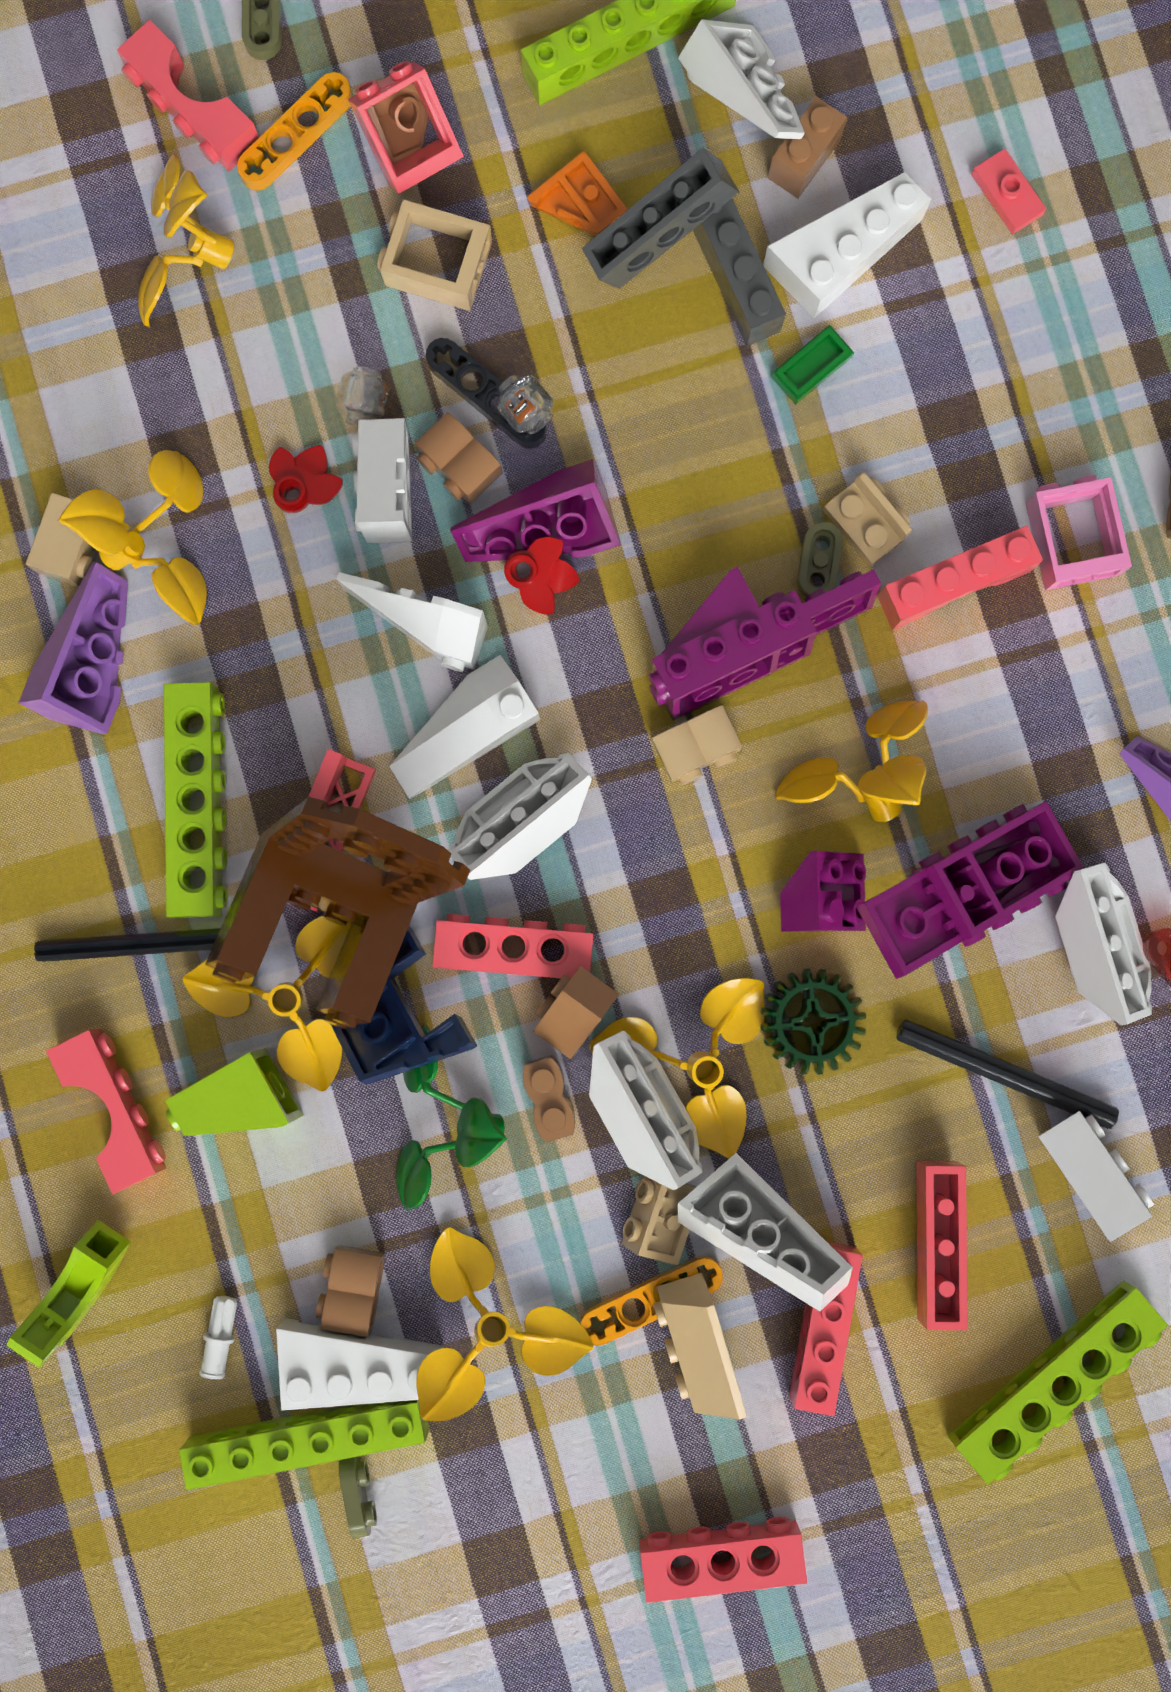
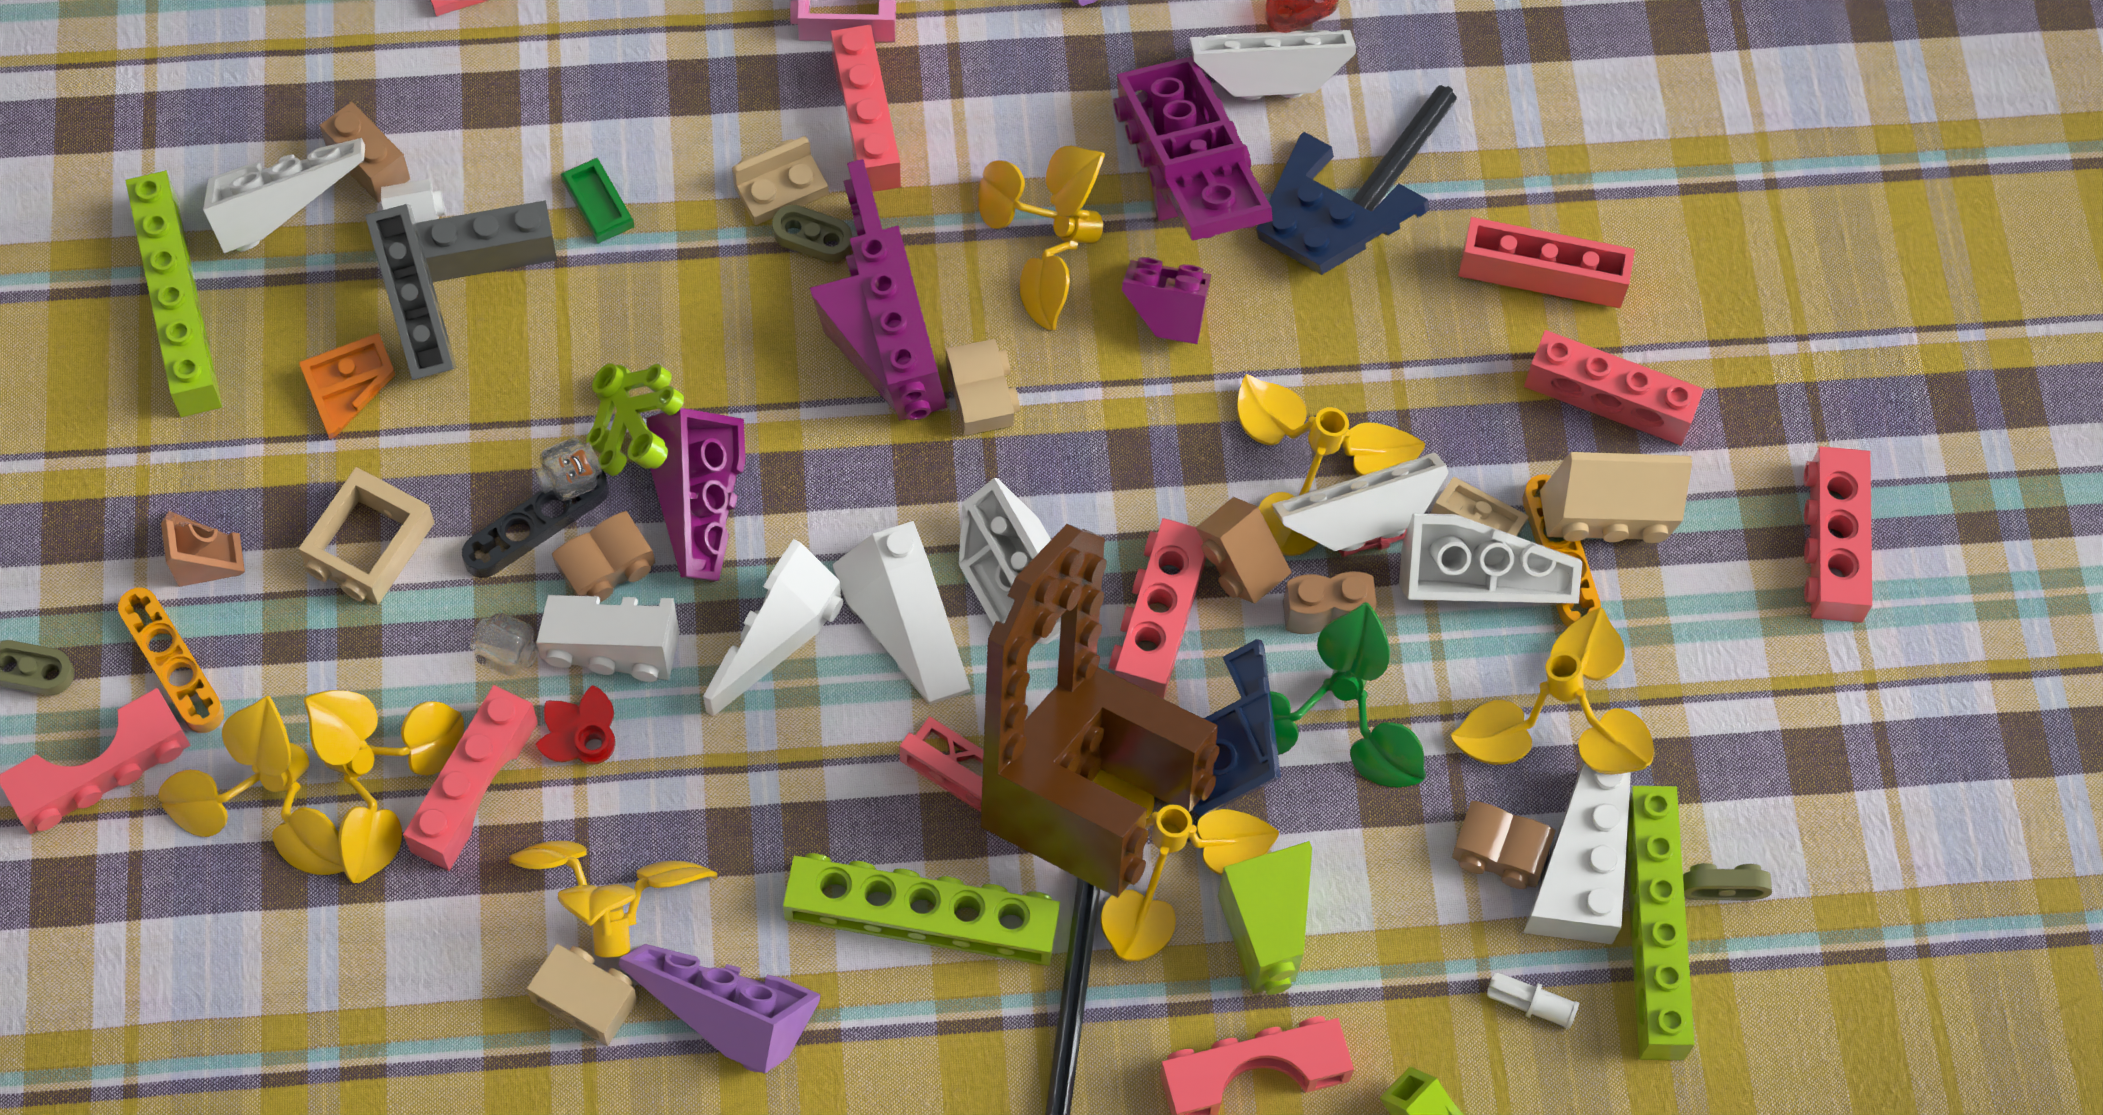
camera: 85 degrees left, 20 degrees down
(202, 390) = (450, 807): none -> coral arch
(208, 268) = (338, 734): none -> yellow plant
(424, 161) = (248, 504): coral window -> none
(546, 575) = (757, 500): red plate -> none
(604, 1230) = (1474, 562): none -> white wedge
(626, 424) = (612, 389): none -> lime plant
(760, 201) = (419, 194): none -> white brick
(765, 1233) = (1508, 409): white wedge -> none
(816, 1039) = (1327, 333): dark green gear -> none
(842, 245) = (486, 145): white wedge -> none
(936, 1019) = (1320, 224): none -> dark blue wing
(1035, 1381) = (1700, 213): lime brick -> none
(1097, 1175) = (1501, 109): white wedge -> none

